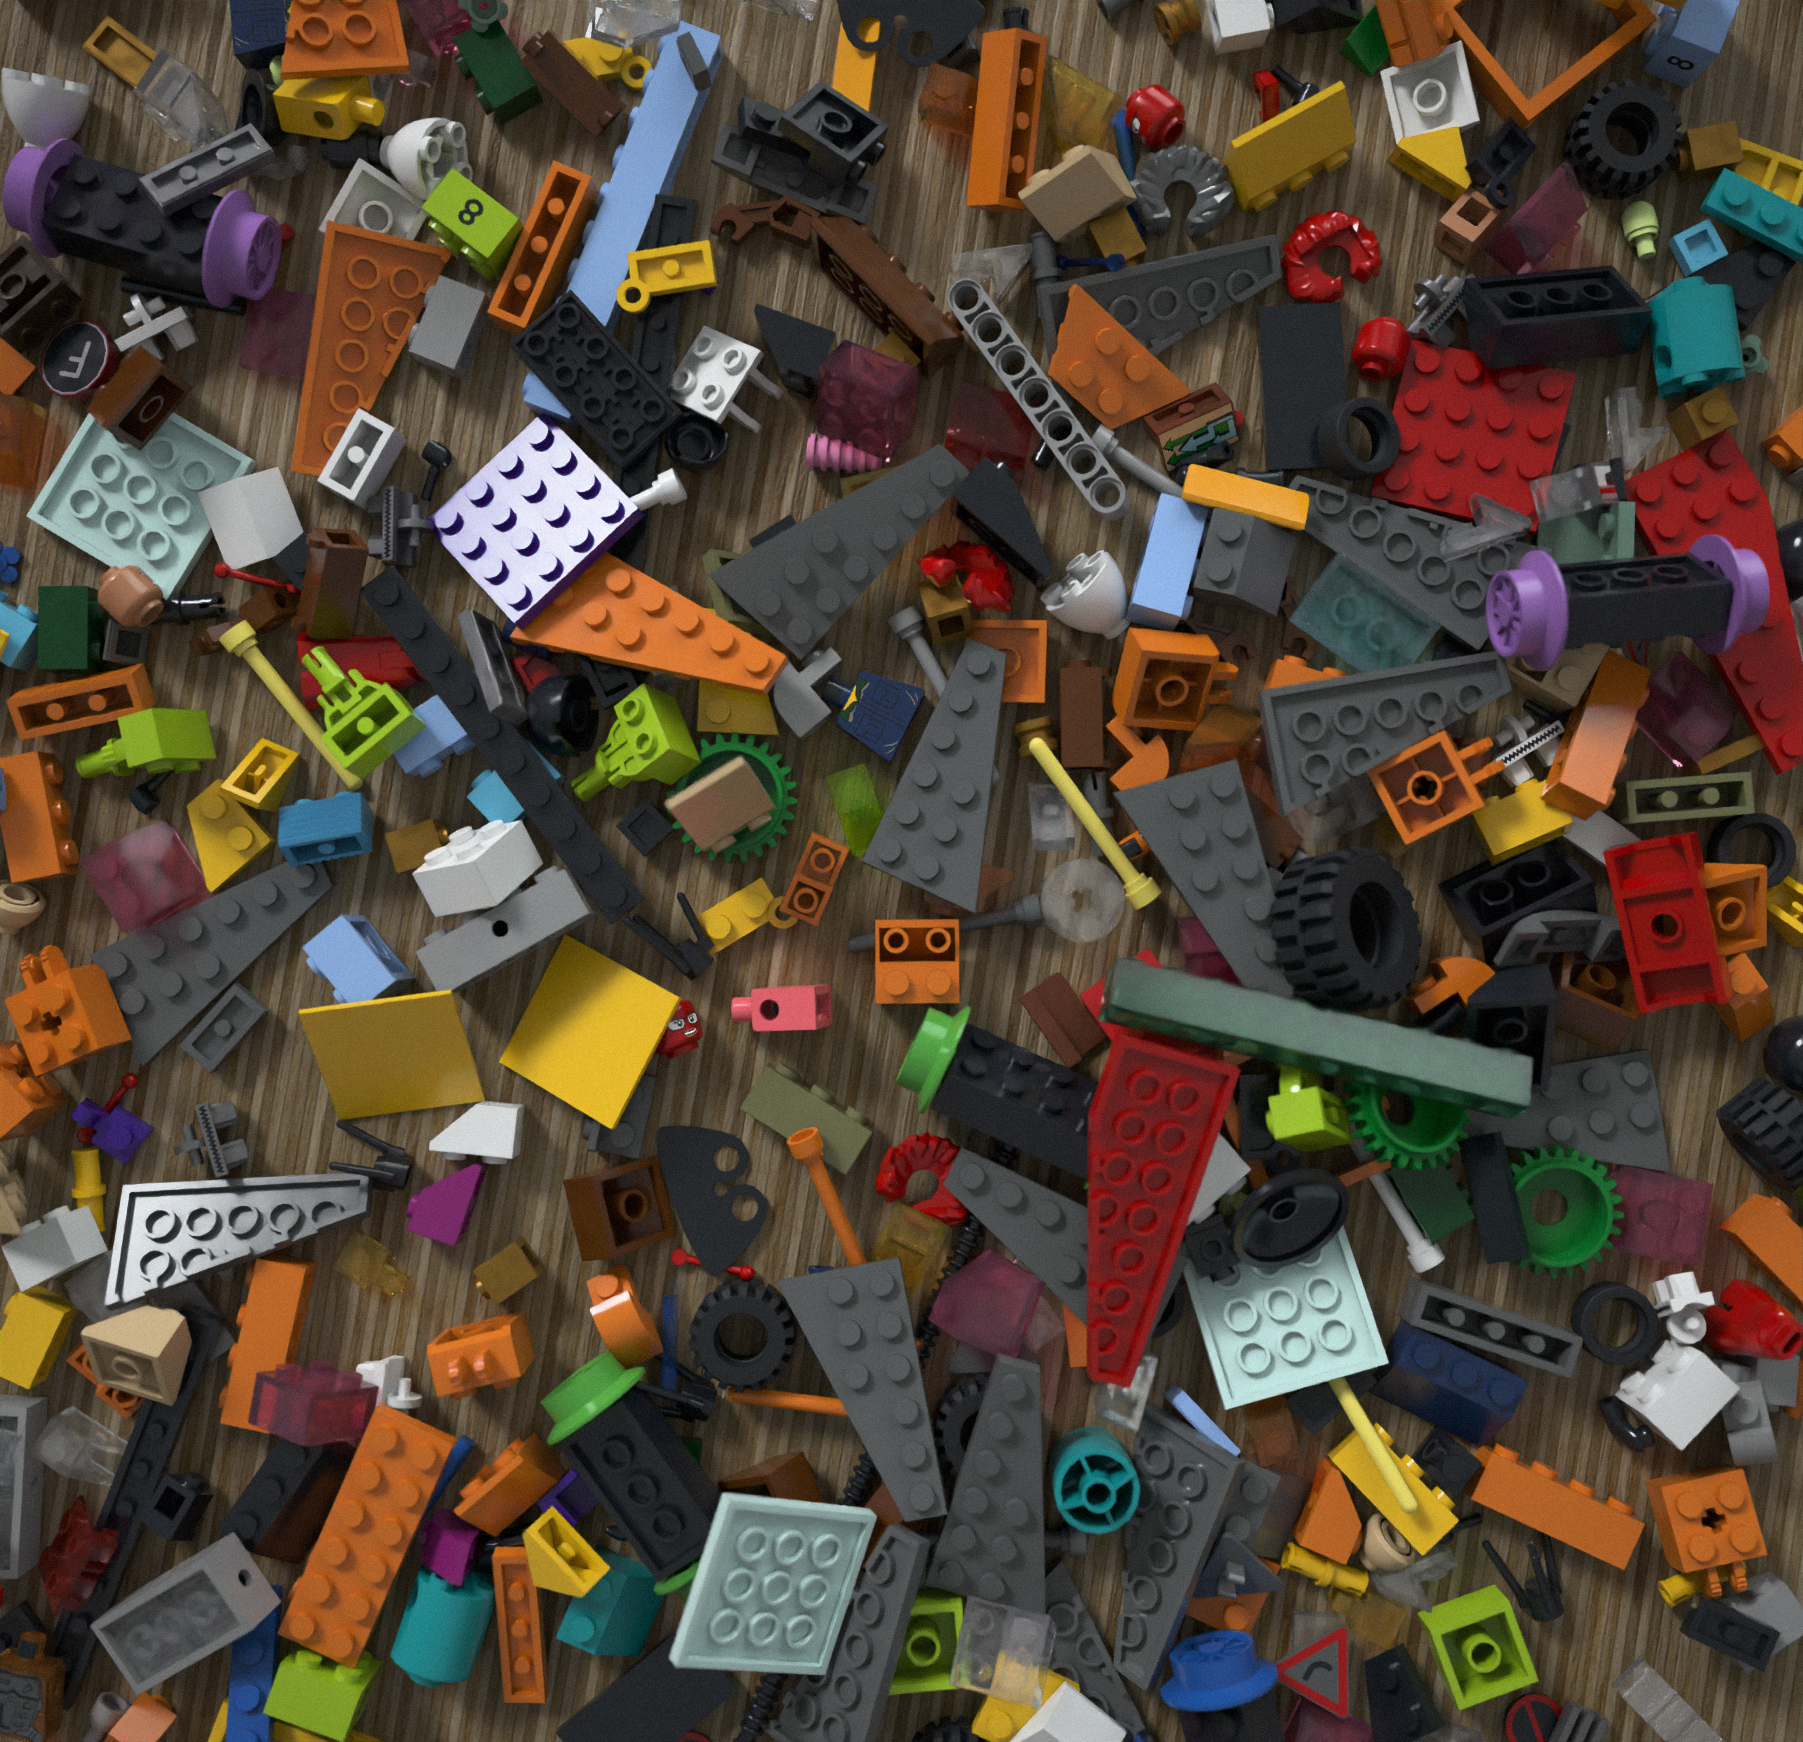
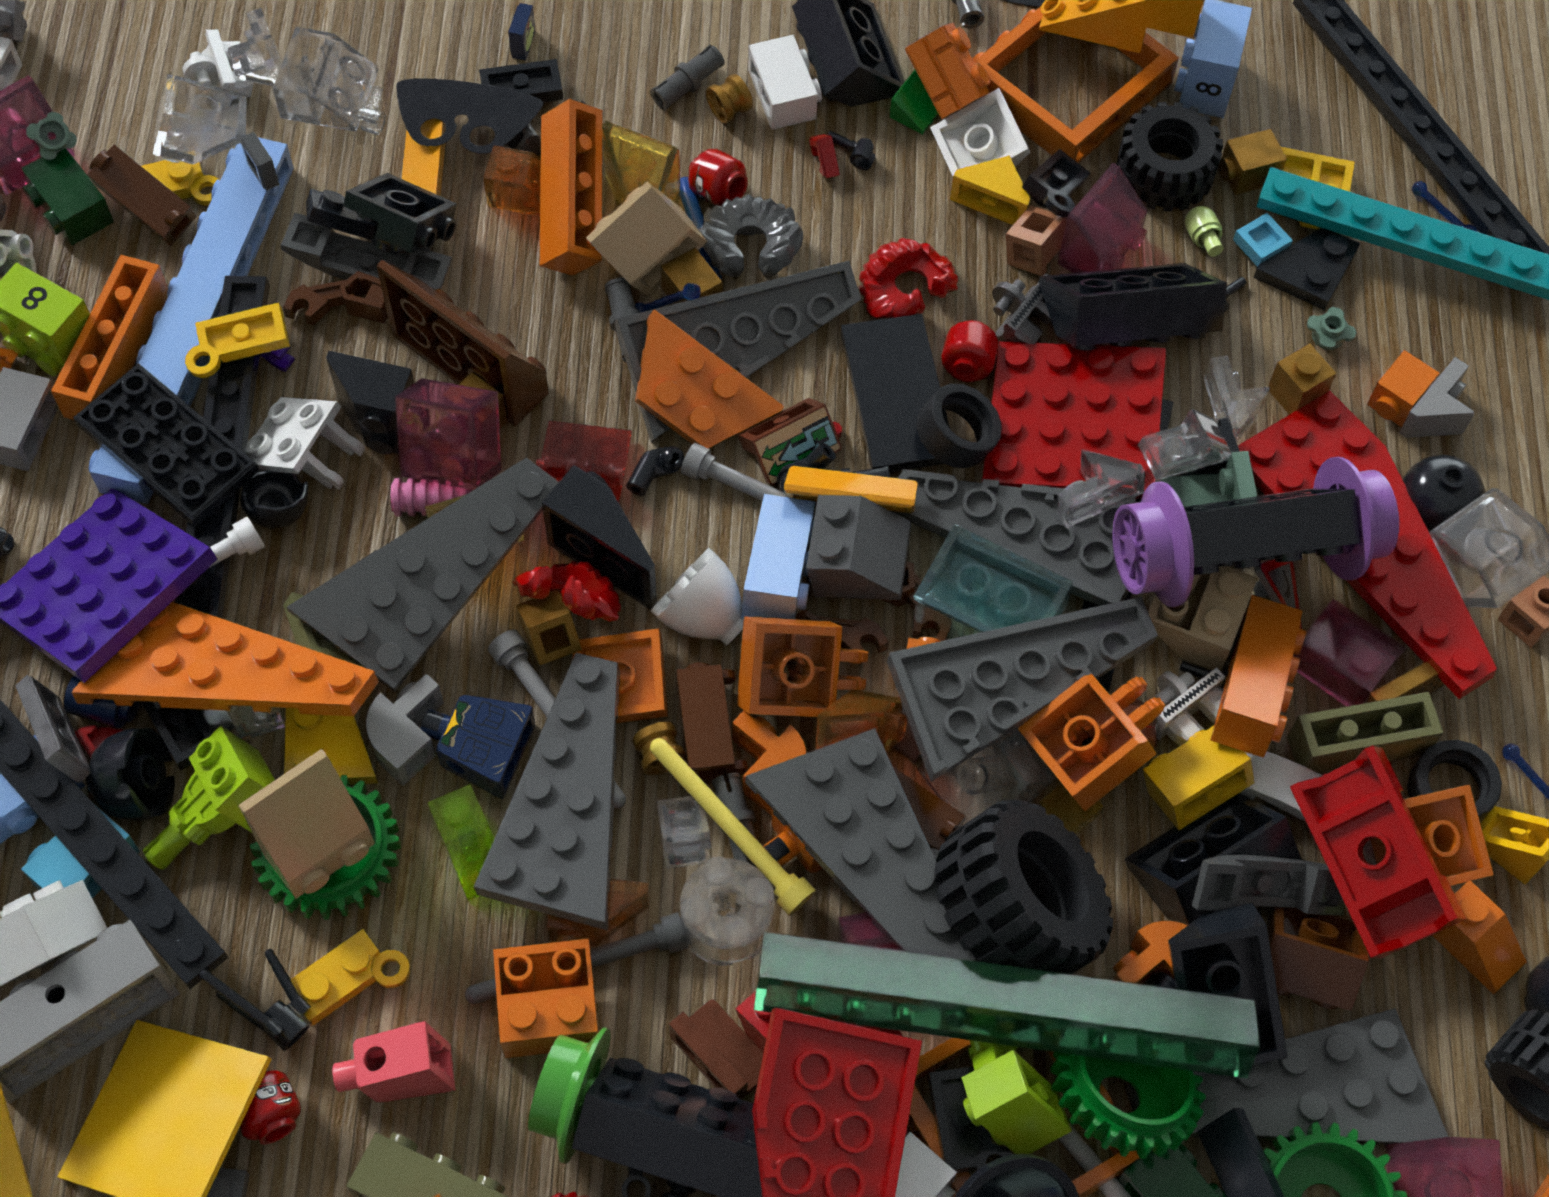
camera: 10 degrees left, 25 degrees down
(645, 827) = (228, 888): black plate -> none
(814, 878) = (423, 924): orange slope -> none
(1001, 264) = (576, 312): clear slope -> none
(1029, 382) = (640, 433): light grey beam -> none
(1290, 149) = (850, 187): yellow slope -> none
(1695, 337) = (1275, 307): teal cylinder -> none

